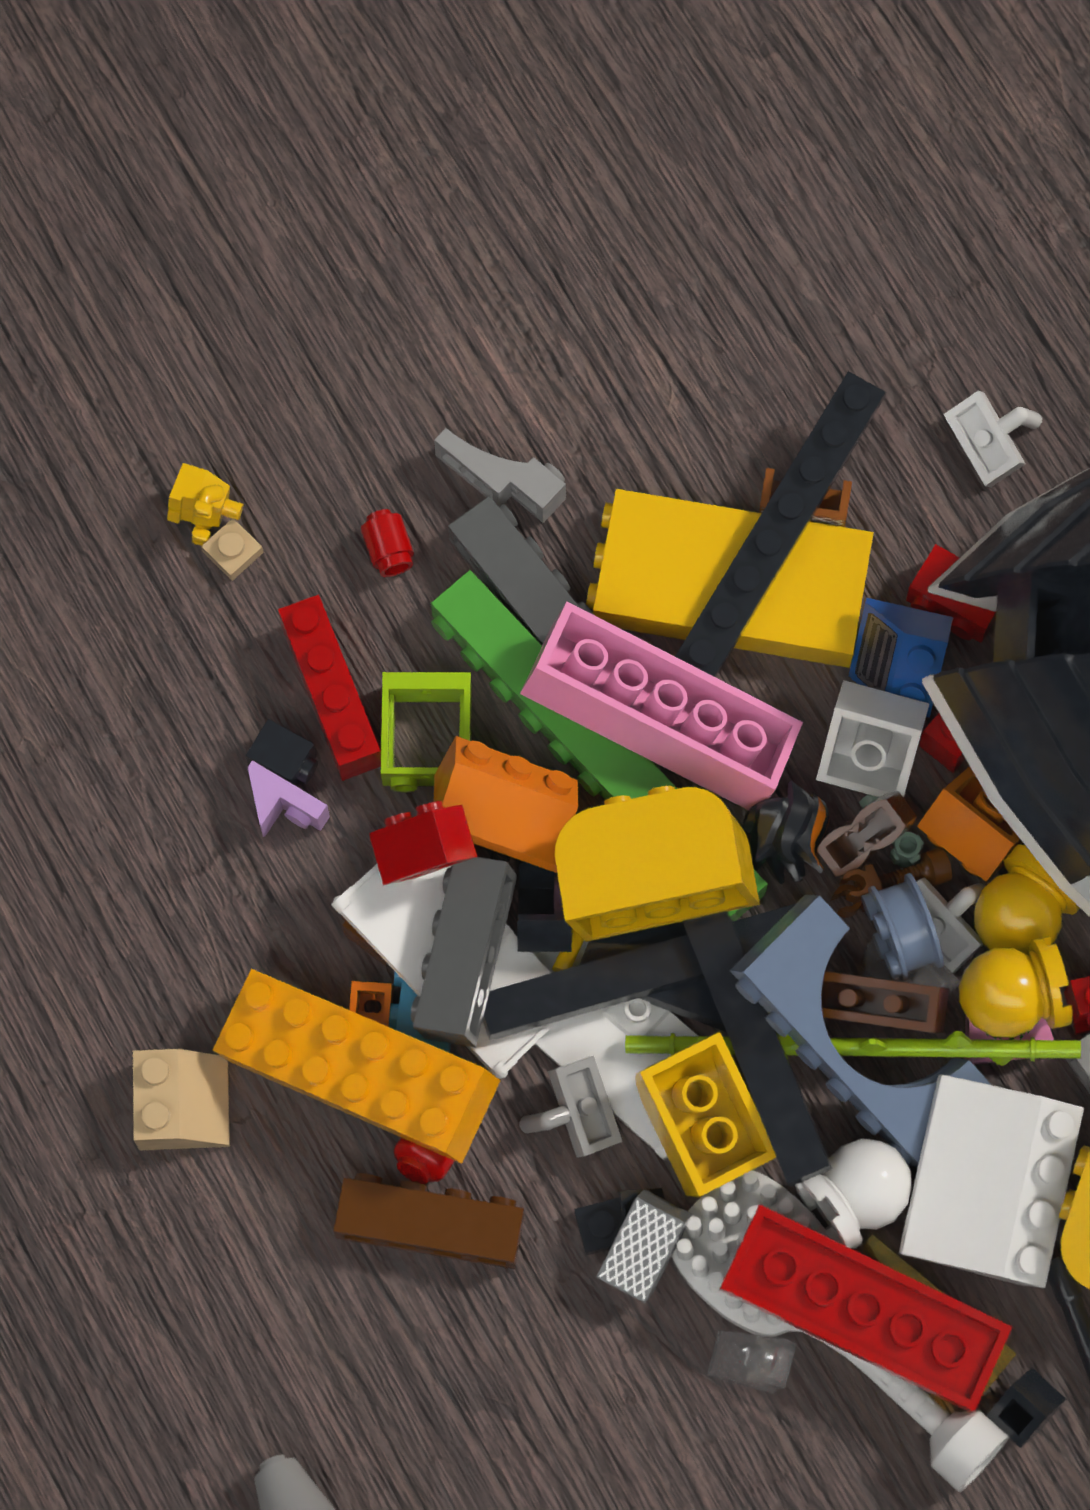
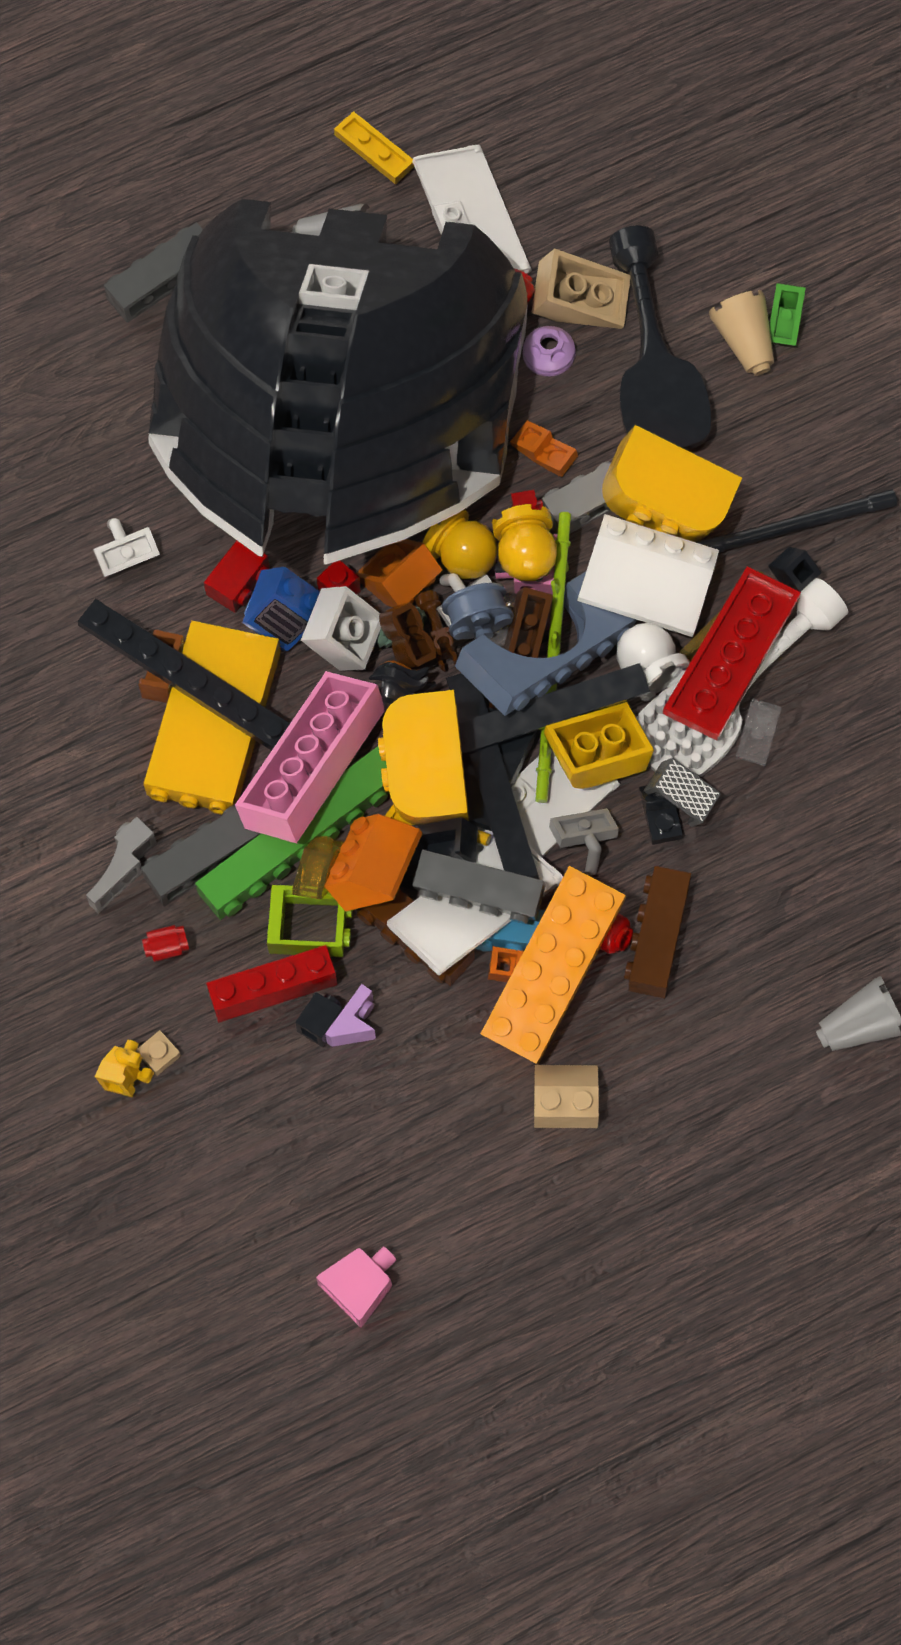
camera: 85 degrees left, 5 degrees down
(422, 843) = (406, 903): red brick -> none
(493, 724) = (315, 867): none -> clear yellow slope

